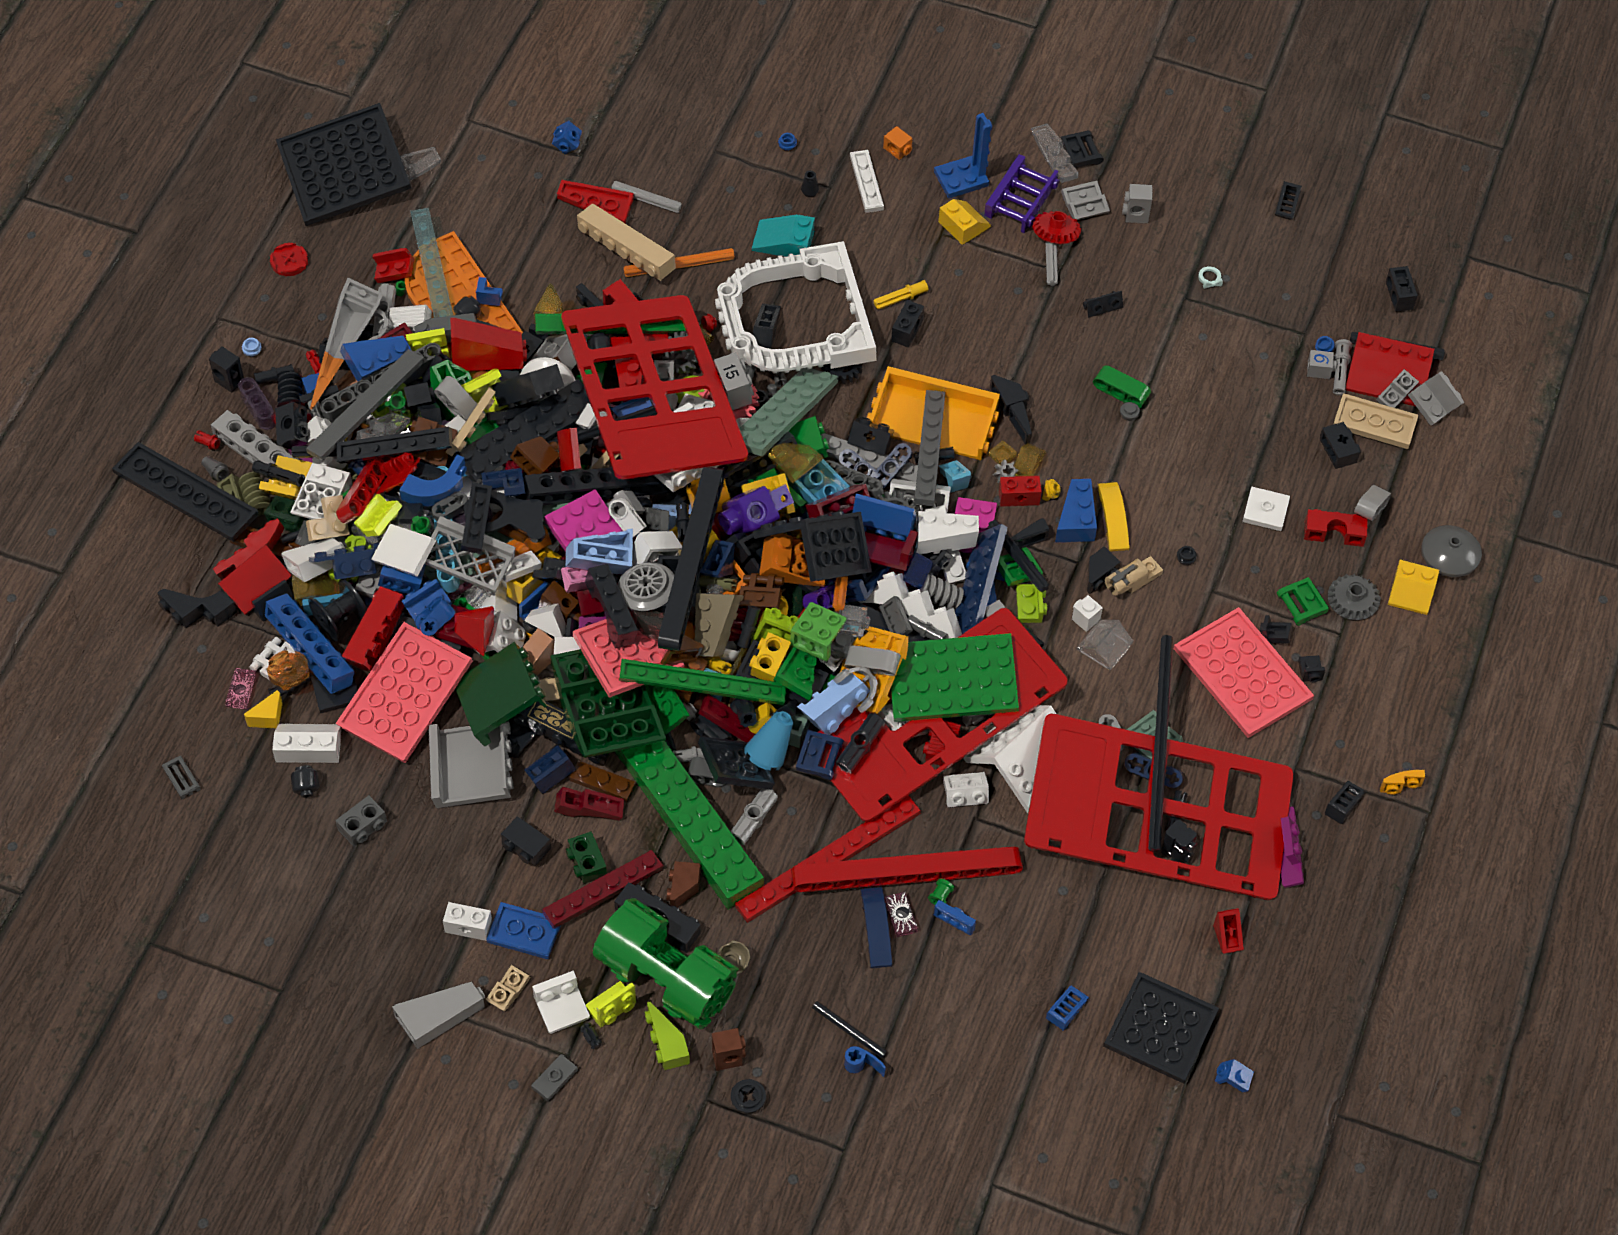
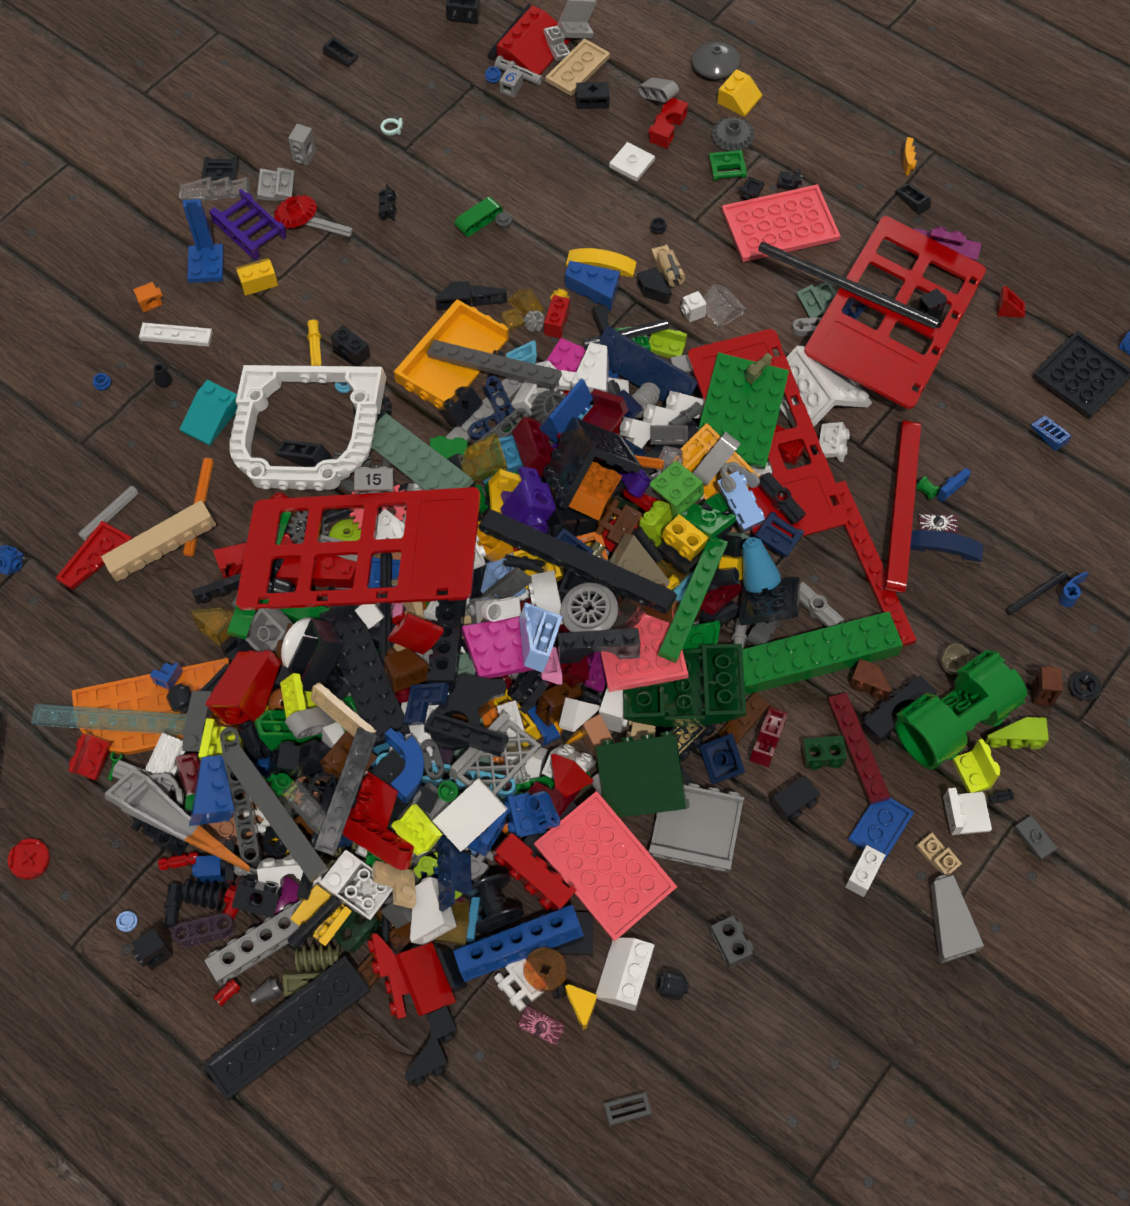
camera: 70 degrees left, 5 degrees up
(997, 670) = (757, 369): none -> olive plate

